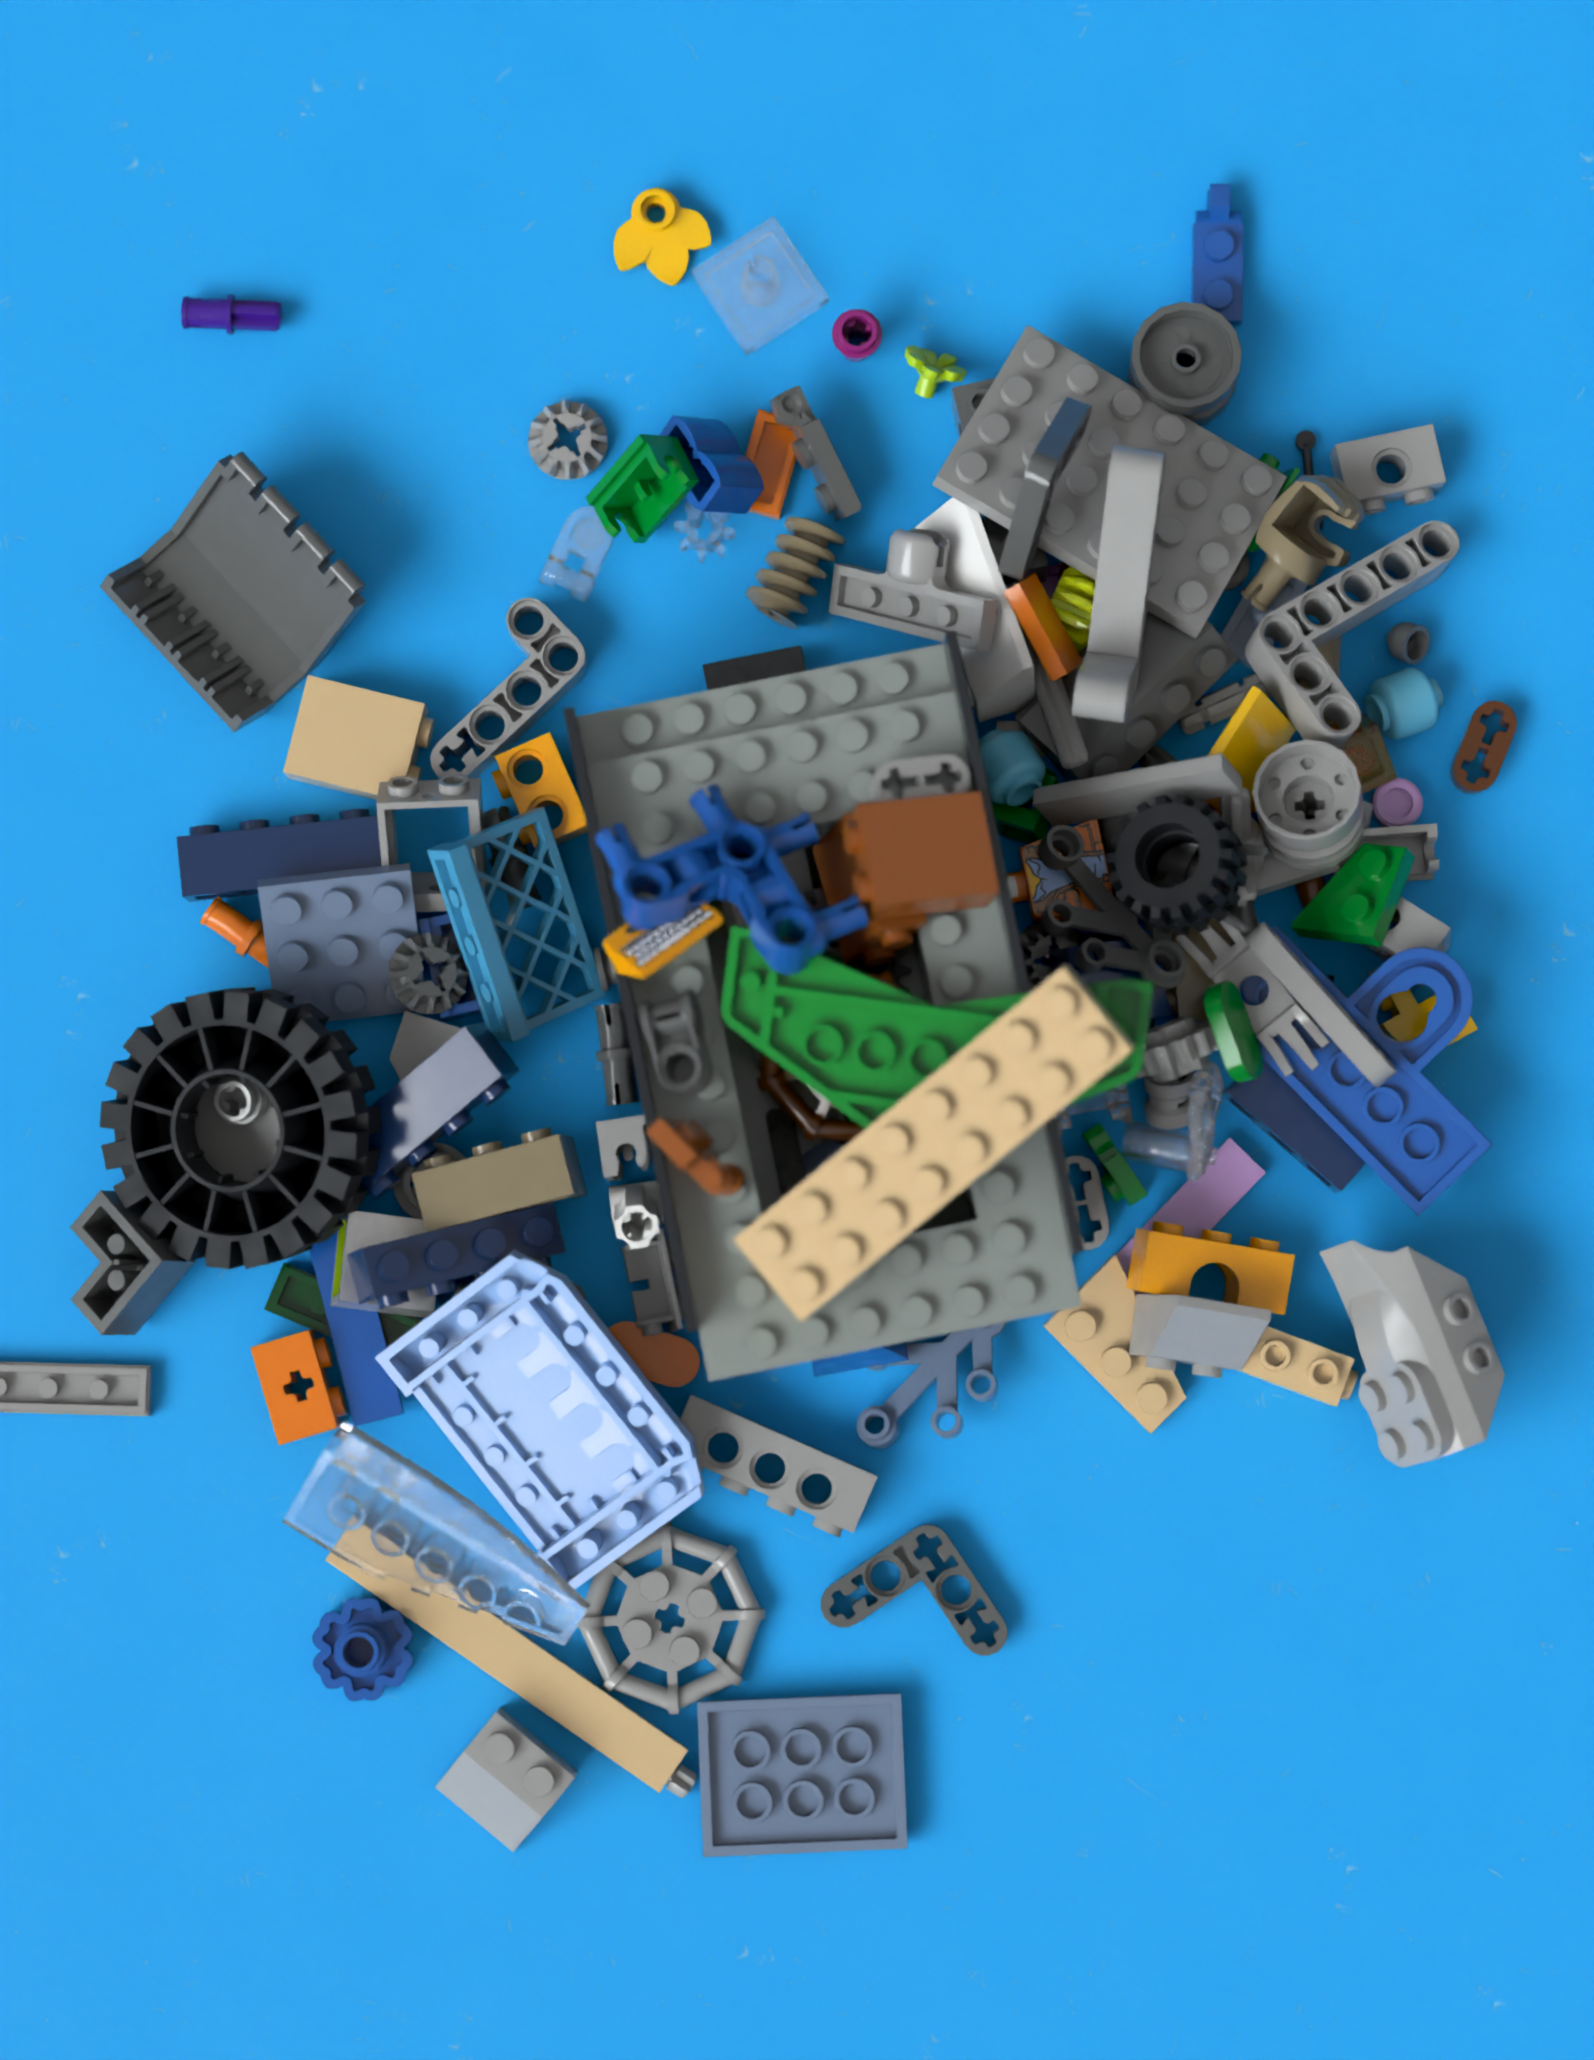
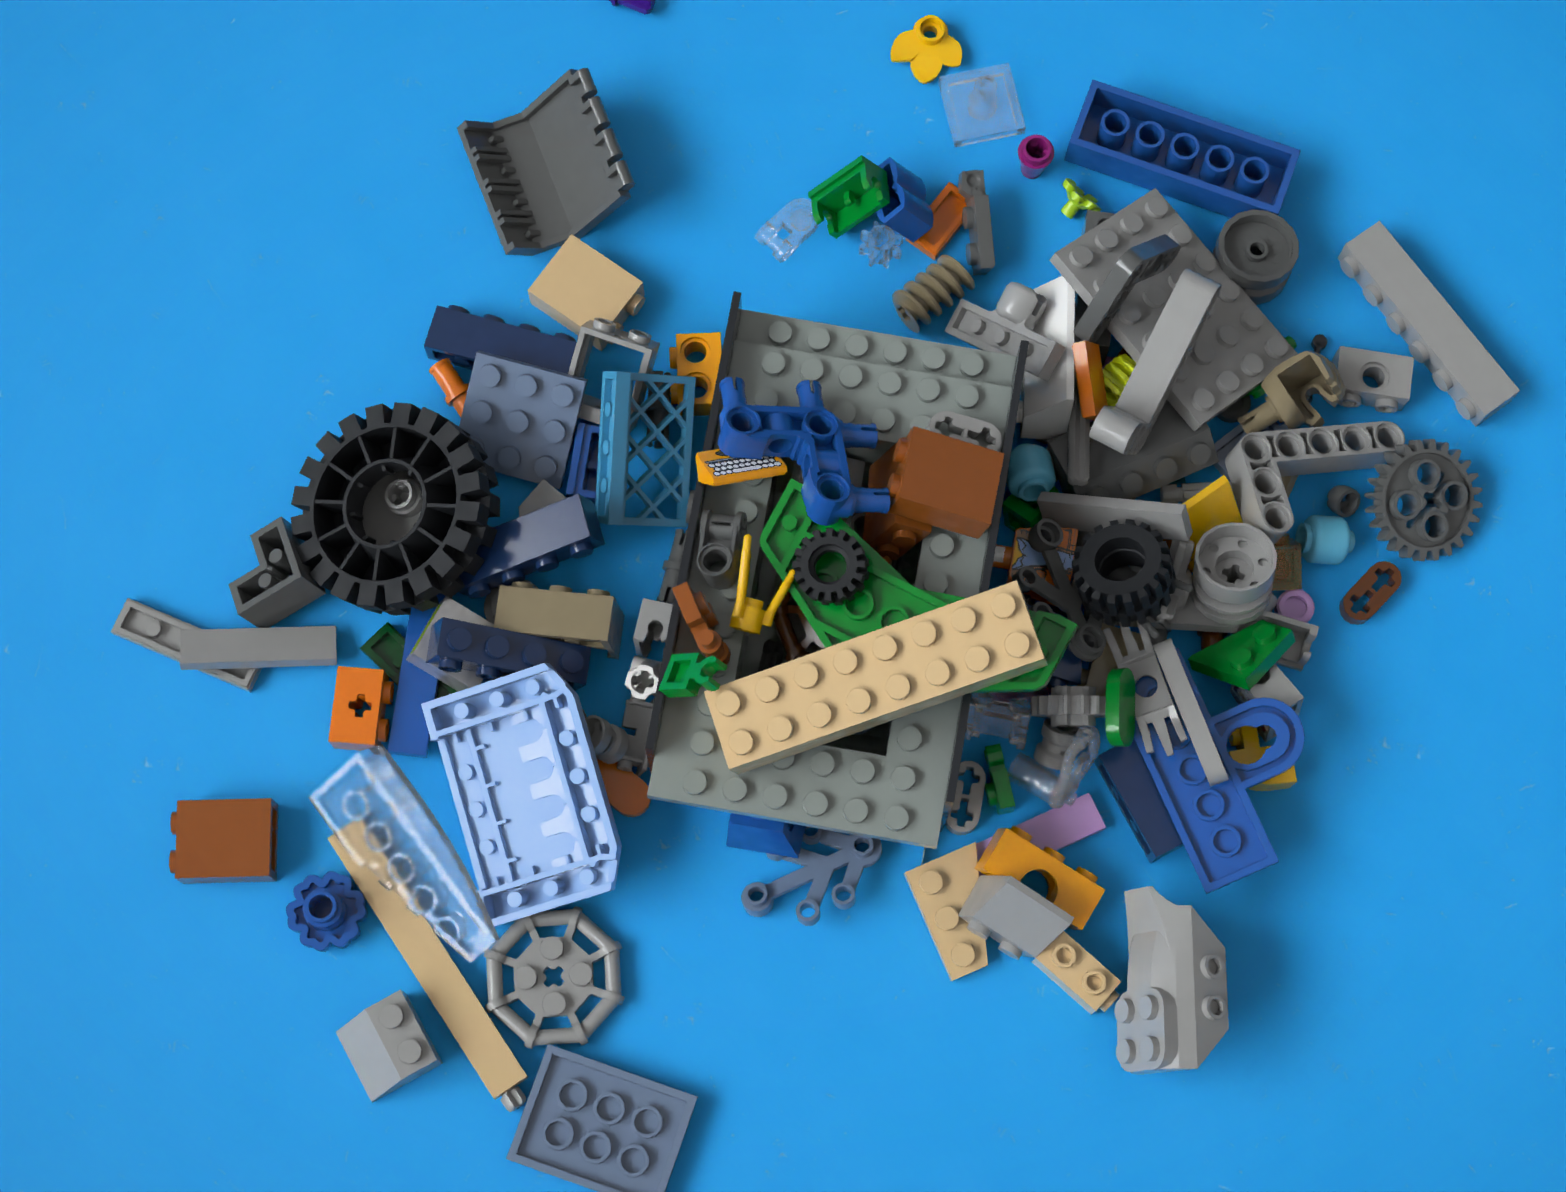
camera: 20 degrees right, 10 degrees down
(139, 1360) = (258, 647): none -> light grey tile
(202, 1613) = (225, 841): none -> dark orange brick
(407, 964) = (560, 471): dark grey gear -> none
(501, 701) = (695, 302): light grey beam -> none
(562, 462) = (801, 166): light grey gear -> none
(620, 1309) = (607, 739): none -> light grey wheel
(705, 1222) = (688, 673): none -> green plate
(744, 1113) = (749, 612): none -> yellow plant
(793, 1023) = (817, 546): none -> black tyre
(849, 1483) = (721, 929): light grey brick -> none
(912, 1571) = (741, 1012): dark grey beam -> none
(1042, 261) = (1179, 153): none -> blue brick
(1218, 256) = (1305, 196): blue hinge -> none
(1432, 367) = (1427, 324): none -> light grey brick
(1470, 595) = (1423, 500): none -> dark grey gear

